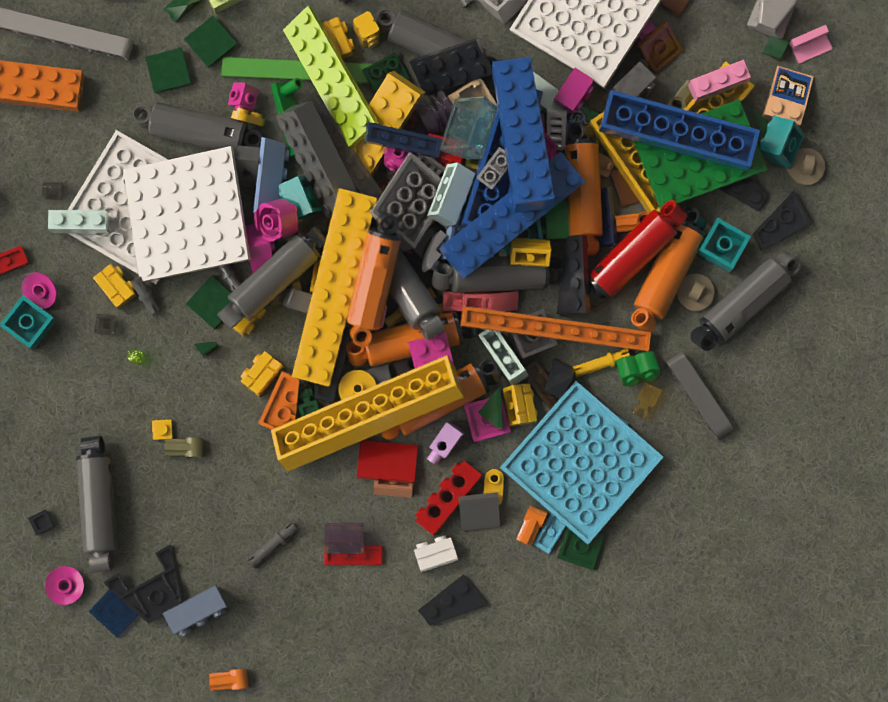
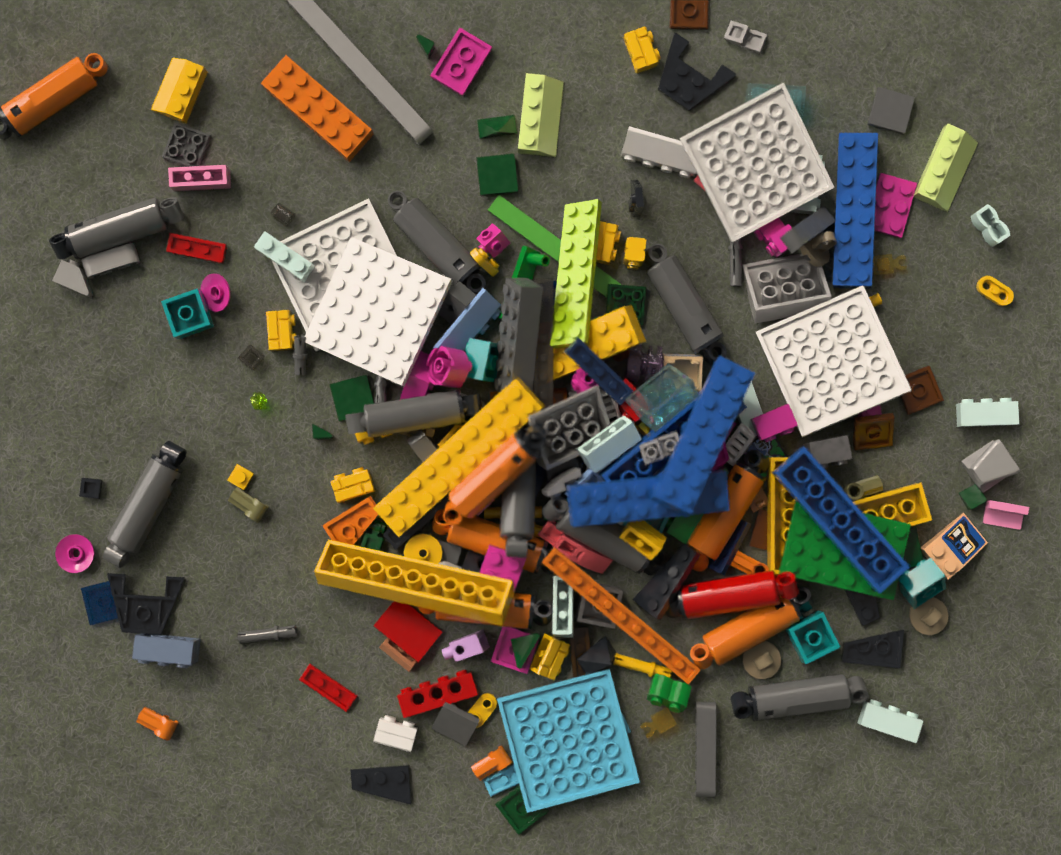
camera: 40 degrees right, 5 degrees up
(168, 70) = (445, 176): dark green tile -> none
(344, 538) = (328, 670): brick -> none
(451, 66) = (684, 332): black plate -> none
(719, 81) = (904, 497): bright pink brick -> none
(833, 271) = (890, 720): none -> light aqua brick

